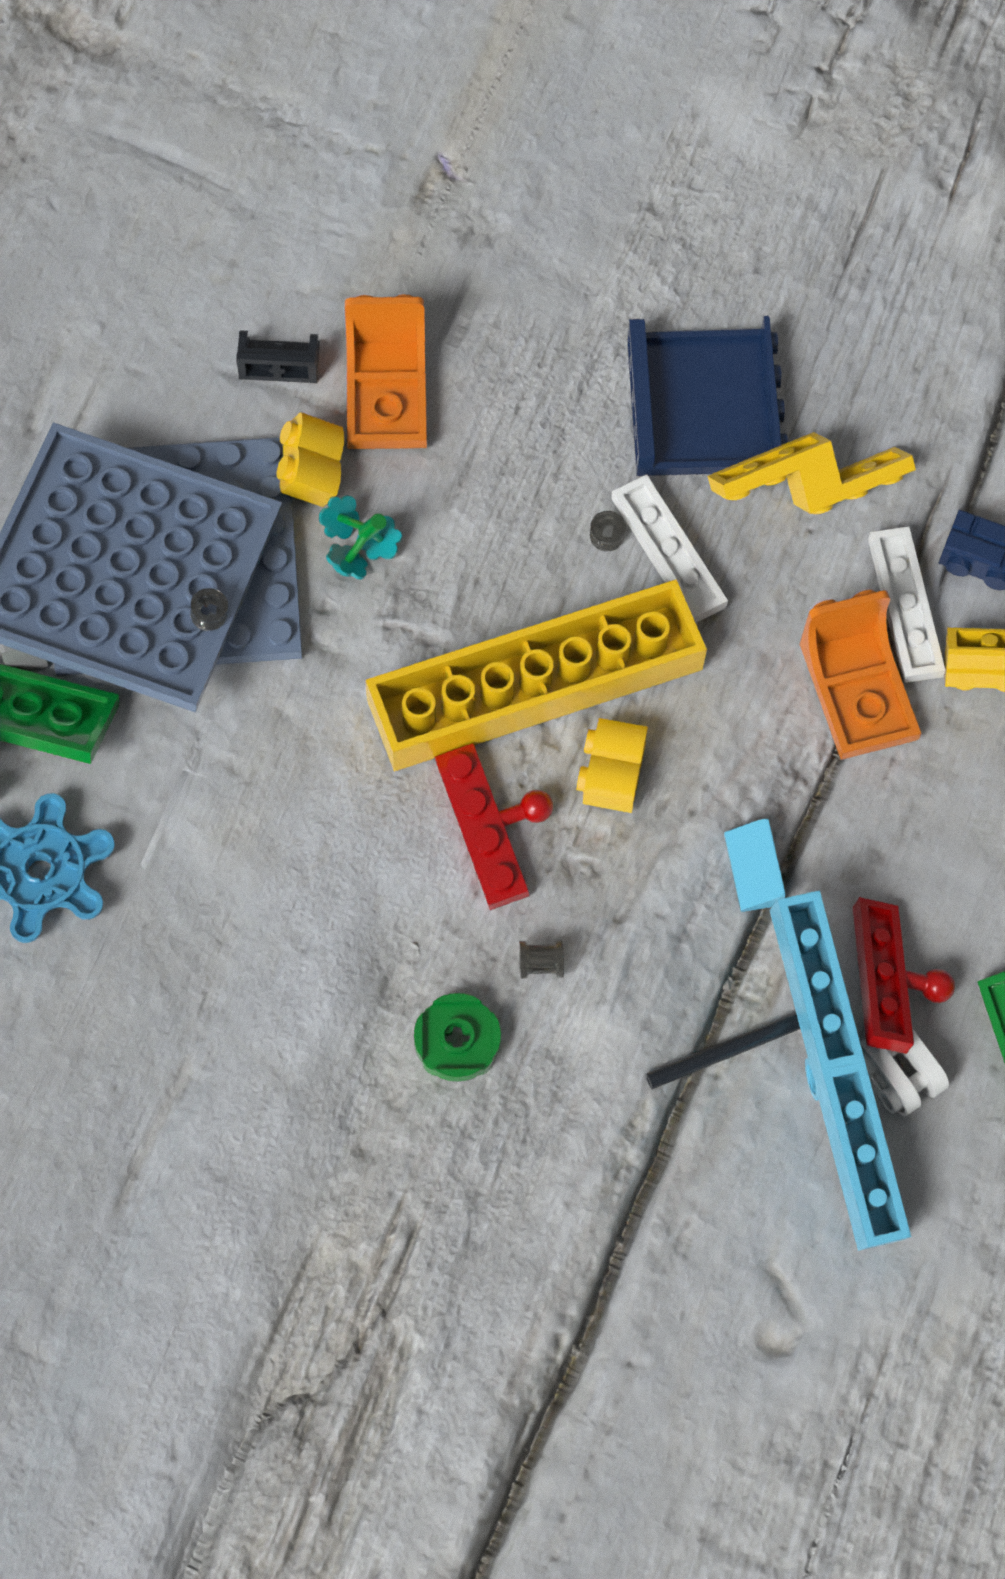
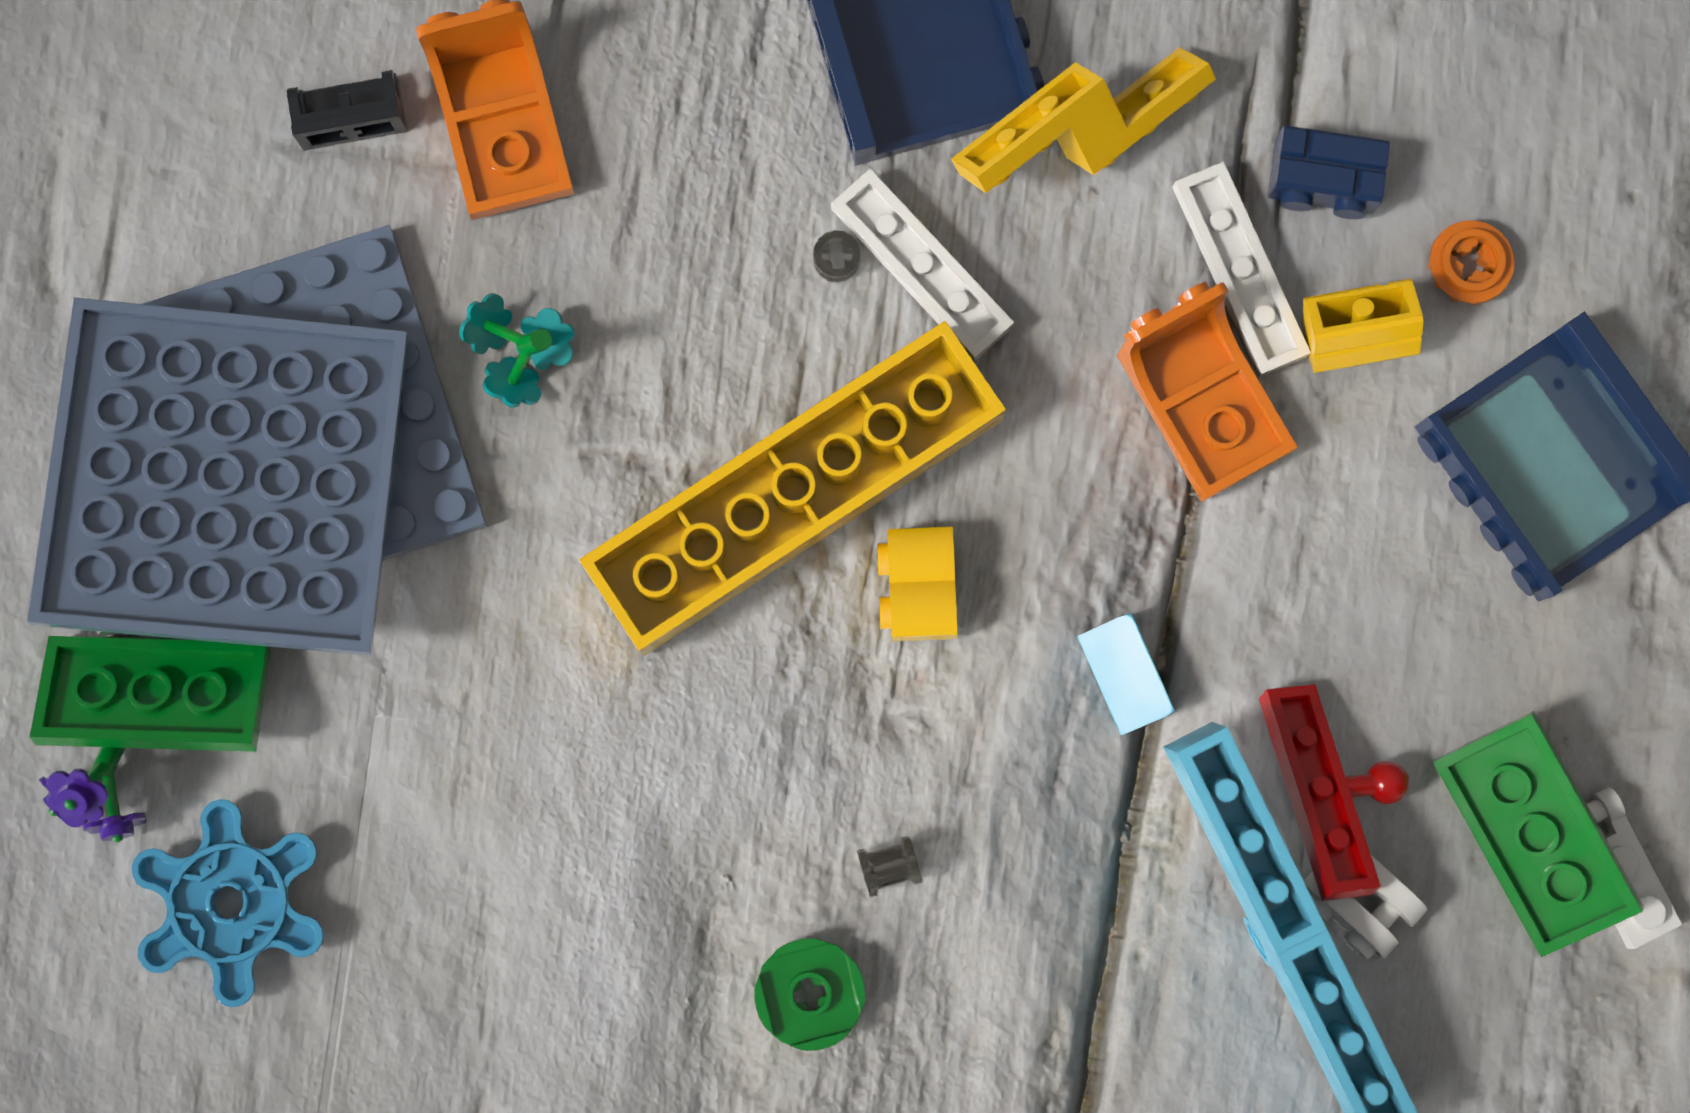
camera: 15 degrees left, 15 degrees up
(206, 597) = (343, 500): clear smoke bush -> none
(310, 459) = (428, 254): yellow brick -> none
(485, 826) = (775, 701): red plate -> none
(722, 1051) = (1139, 927): black piece -> none

